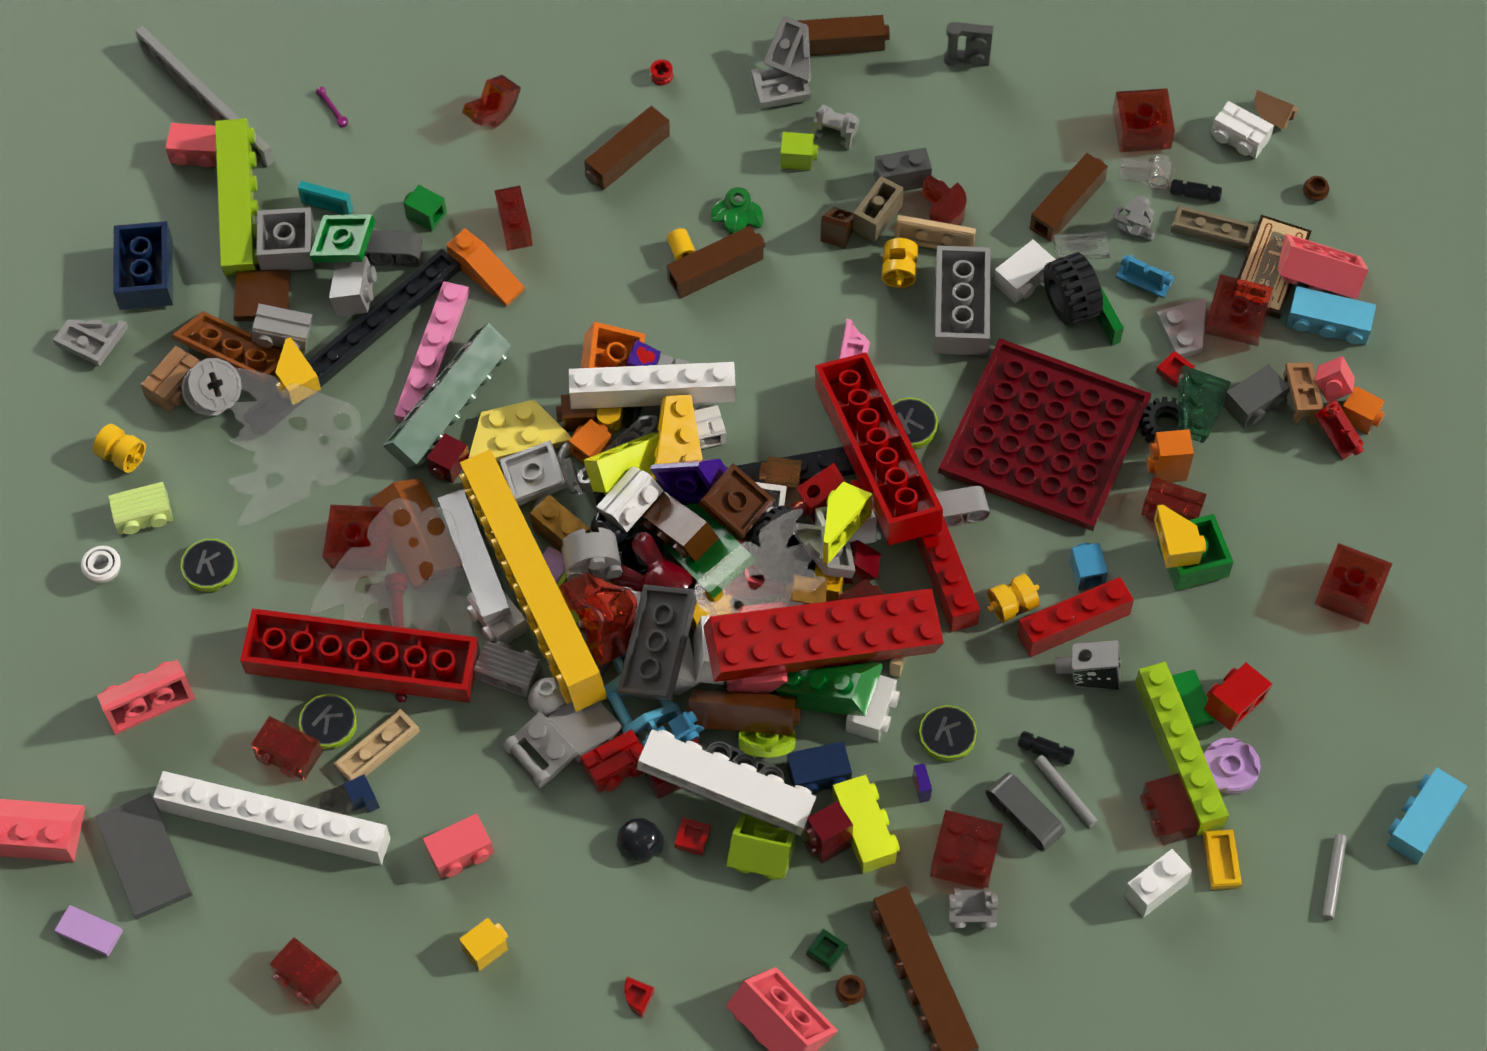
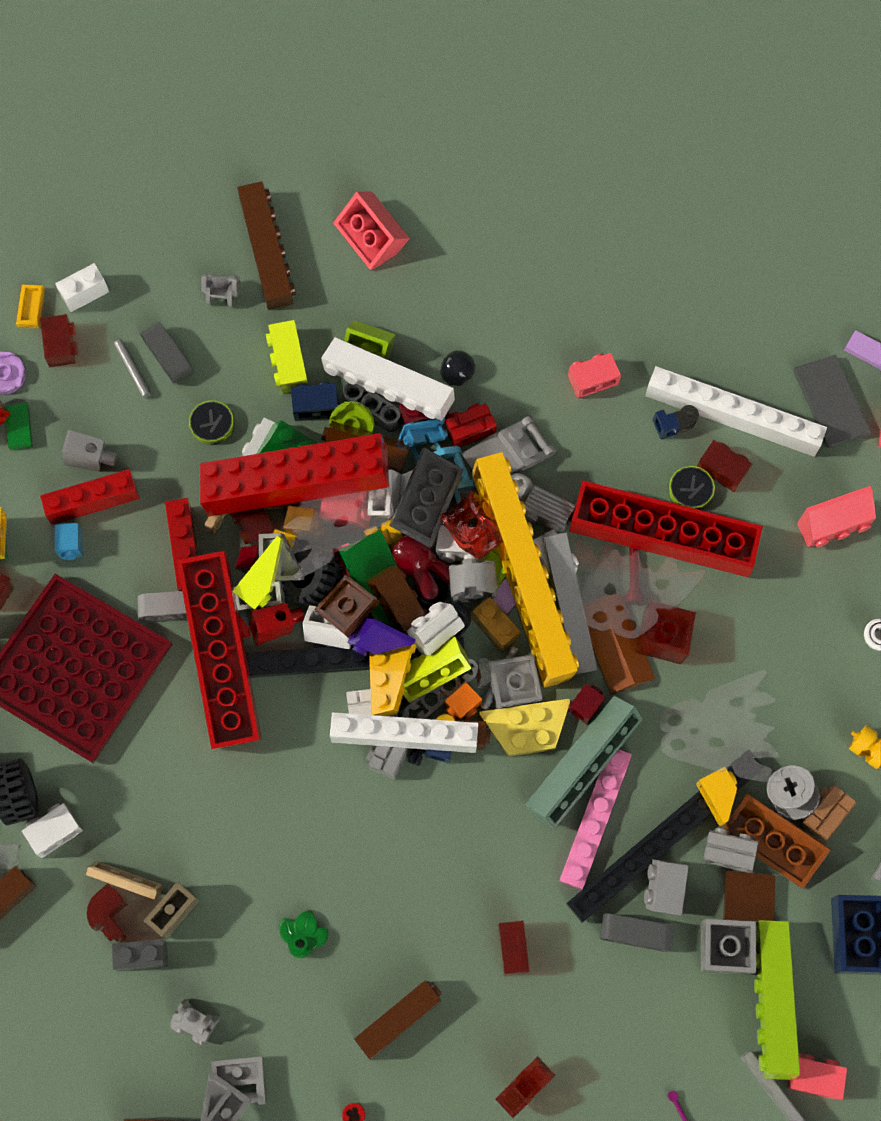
camera: 175 degrees left, 10 degrees up
(140, 508) = (849, 688): yellowish green brick -> none
(209, 565) = (789, 633): black tile -> none
(304, 973) = (709, 297): clear red brick -> none
(325, 198) = (691, 996): teal tile -> none
(342, 238) = (675, 931): green plate -> none
(377, 746) = (653, 464): tan tile -> none
(425, 207) = (597, 974): green brick -> none
(484, 267) = (543, 897): orange slope -> none
(484, 943) = (578, 303): yellow brick -> none
(608, 346) = (436, 782): orange slope -> none
(638, 995) = (470, 261): red tile -> none
(642, 355) = (409, 771): dark purple tile -> none
(680, 243) = (360, 900): yellow piece -> none
(692, 836) = (418, 362): red plate -> none
(715, 261) = (329, 877): reddish brown brick -> none
(781, 472) = (304, 644): clear orange brick -> none
(797, 151) = (234, 994): lime brick -> none
(826, 949) = (331, 276): dark green tile -> none
(828, 832) = (314, 342): dark red brick -> none
(837, 227) = (209, 906): reddish brown slope -> none
(850, 989) = (319, 246): reddish brown plate -> none
(853, 341) = (220, 776): bright pink tile -> none
(899, 263) = (163, 850): yellow wheel -> none
(917, 420) = (183, 694): black tile -> none
(922, 783) = (238, 378): dark purple tile -> none
(962, 300) = (115, 801): light grey brick -> none
(966, 849) = (216, 327): clear red brick -> none
(977, 45) = (38, 1093): dark grey plate -> none
(1008, 600) = (135, 518): yellow wheel -> none
(1046, 747) = (139, 401): black axle -> none
(1181, 745) = (36, 385): lime brick -> none

